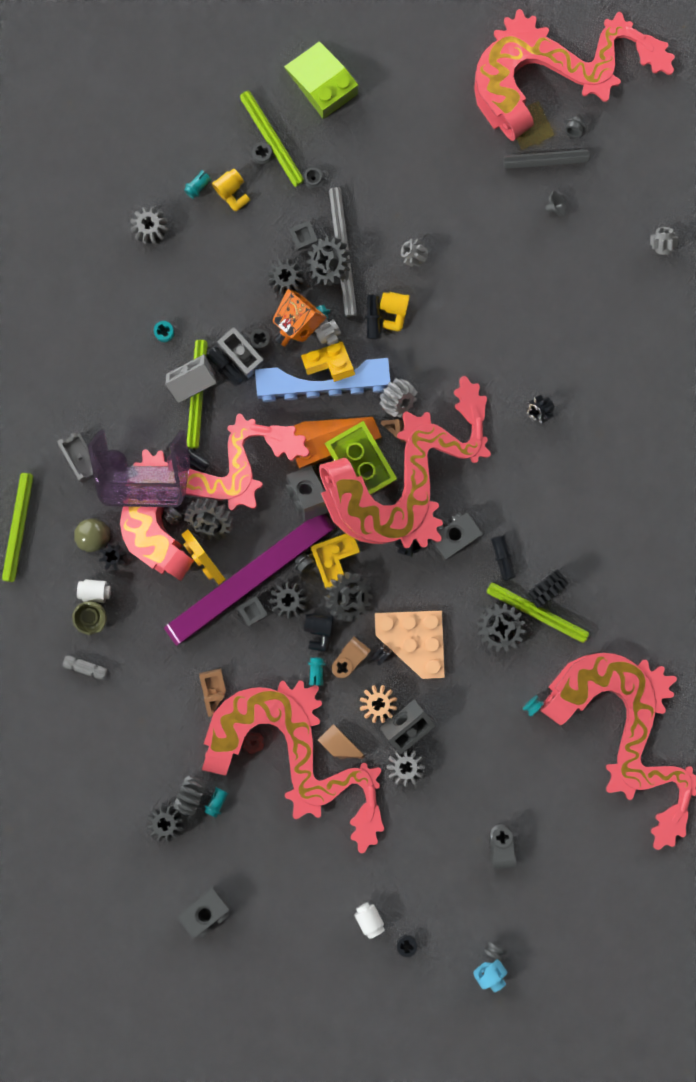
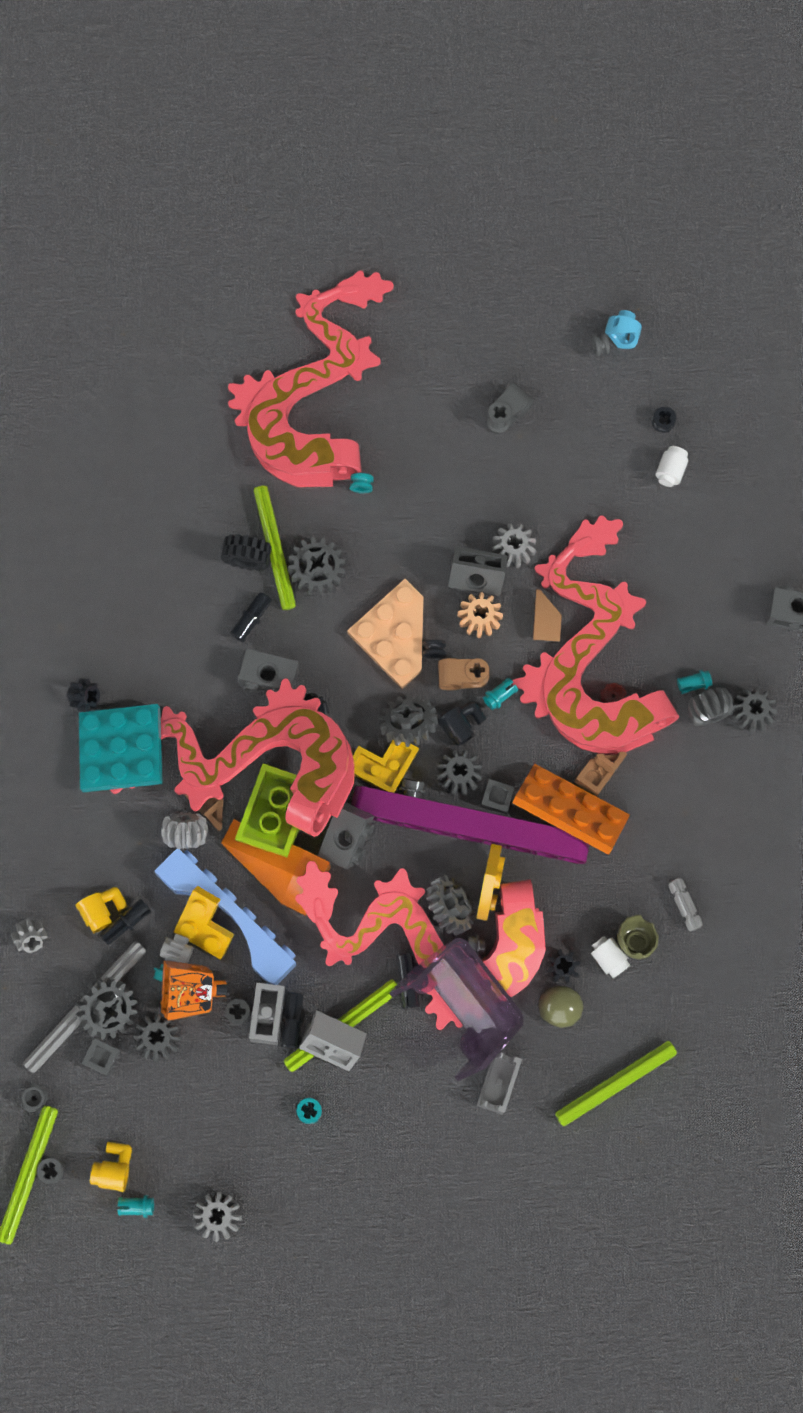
camera: 135 degrees left, 10 degrees down
(203, 648) = (571, 809): none -> orange plate
(486, 403) = (120, 748): none -> teal plate

